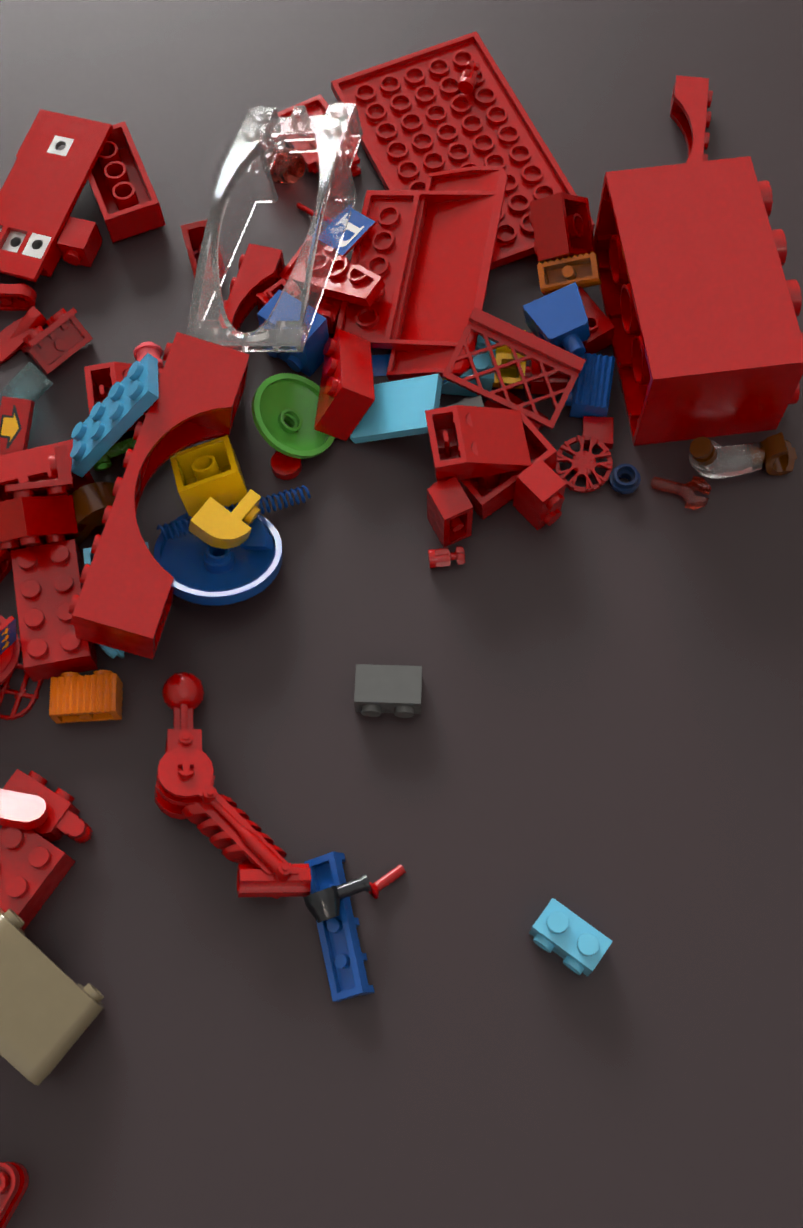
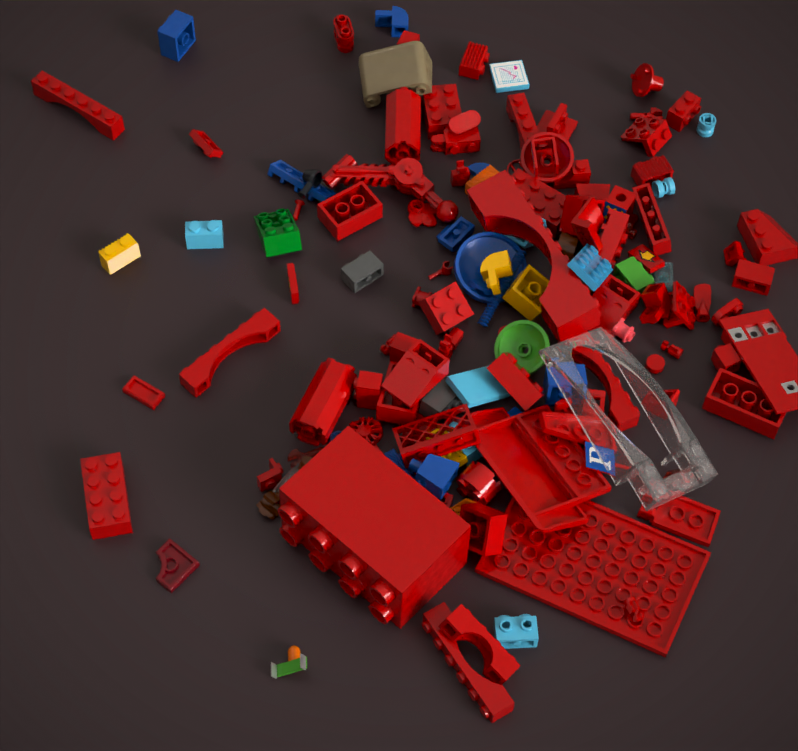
camera: 135 degrees right, 10 degrees down
(57, 412) = (633, 274): none -> bright green brick
(64, 737) = (477, 167): none -> blue tile
(81, 352) = (657, 303): none -> red brick
(99, 891) = (402, 125): none -> red brick
(105, 736) = (460, 174): none -> red plate
(118, 304) = (672, 350): none -> red piece
(156, 305) = (655, 364): none -> red tile
(208, 653) = (455, 234): none -> blue slope
(220, 721) = (421, 213): none -> red plate
(275, 615) = (444, 270): none -> red hand
(318, 799) = (349, 210): none -> red brick
(335, 534) = (446, 308): none -> red brick
(346, 585) = (418, 296): none -> red brick
(384, 495) = (450, 342): none -> red bar
(427, 1139) = (202, 140): none -> red plate
(449, 859) = (278, 232): none -> green slope
(502, 745) = (292, 283): none -> red tile
(509, 291) = (478, 483): none -> red brick
(601, 142) = (516, 631): none -> medium azure brick
(609, 707) = (257, 329): none -> red arch
(612, 521) = (323, 402): none -> red brick
(657, 123) = (497, 661): none -> red arch
(733, 1007) = (119, 253): none -> yellow brick
(752, 483) = (270, 478): none -> red bracket

